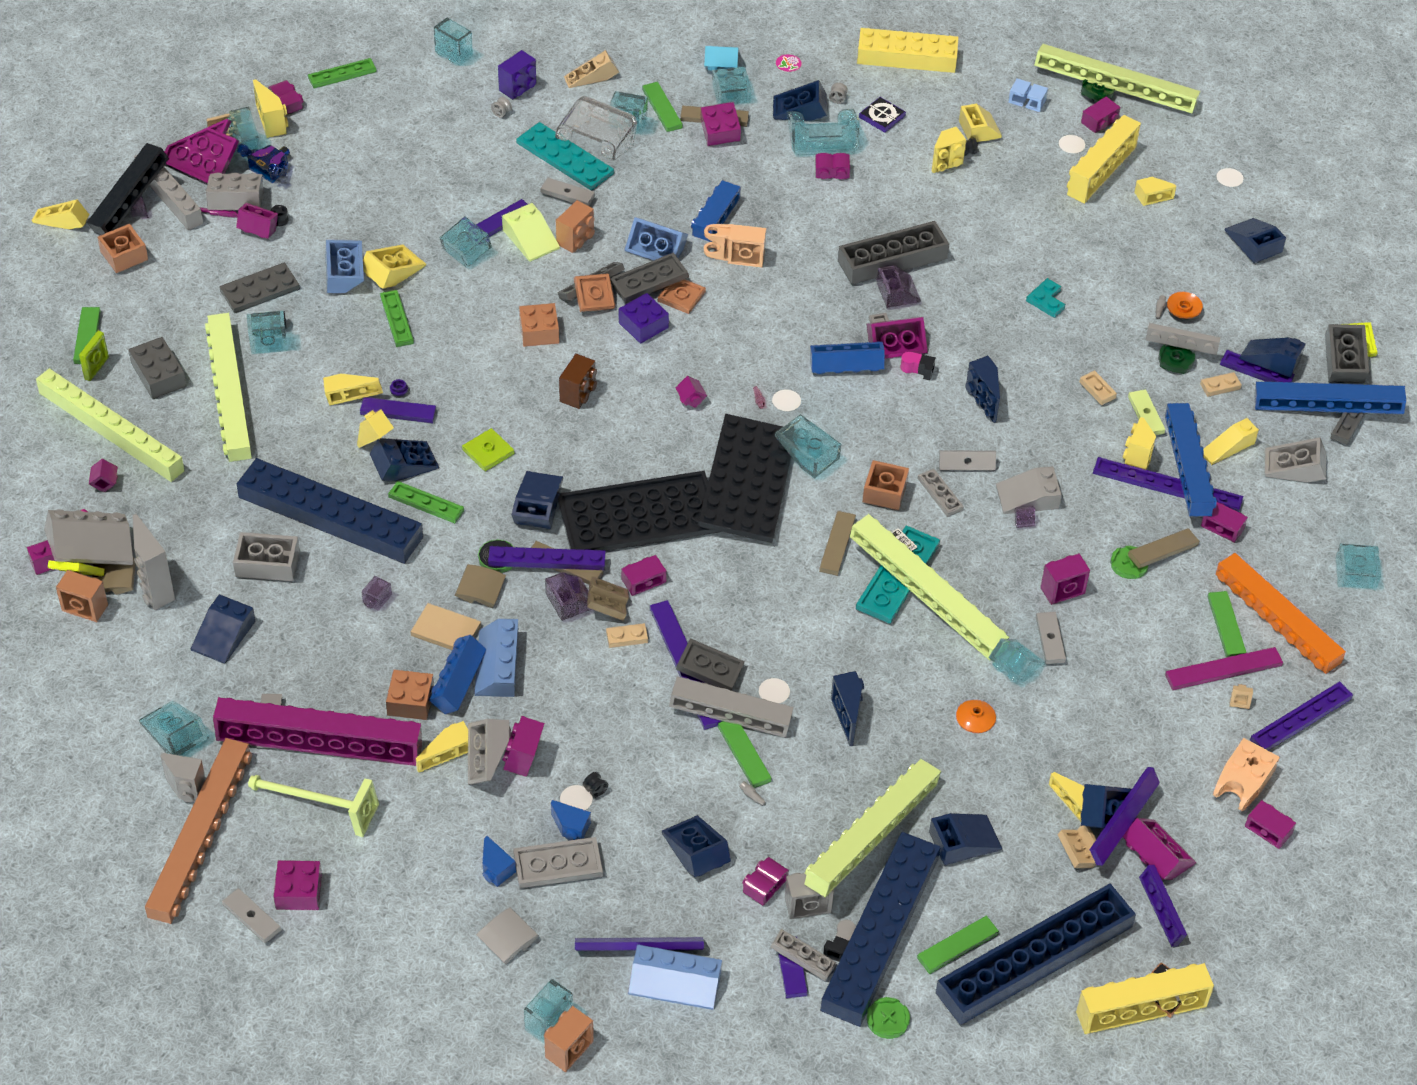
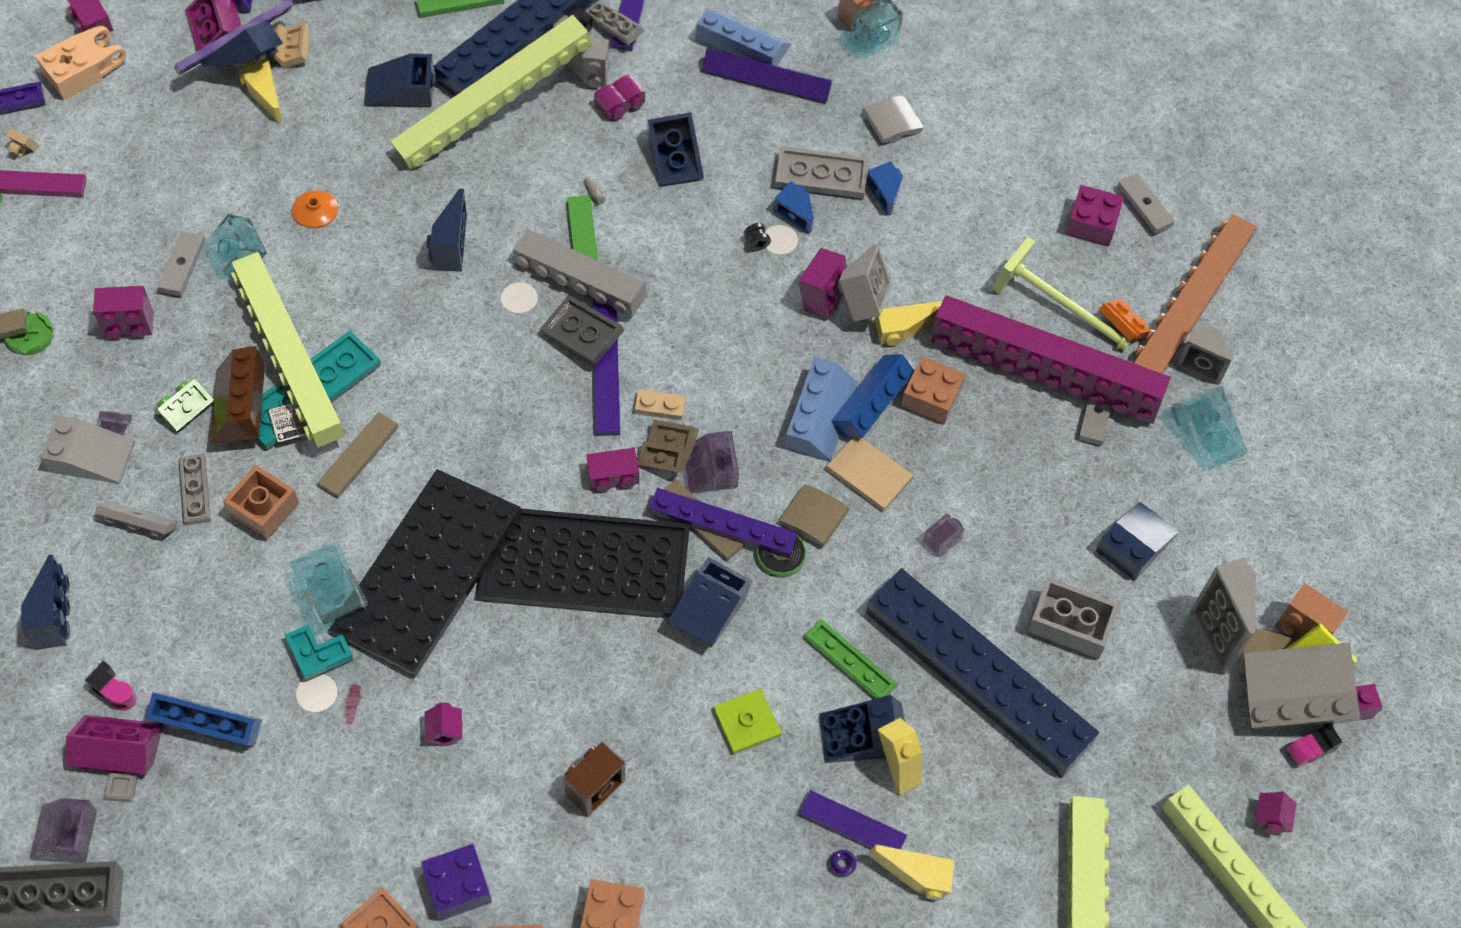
camera: 165 degrees left, 10 degrees up
(257, 796) = (1124, 319): none -> orange plate
(795, 408) = (316, 658): none -> teal plate
(941, 543) = (238, 397): none -> reddish brown slope
(983, 539) = (184, 405): none -> bracket

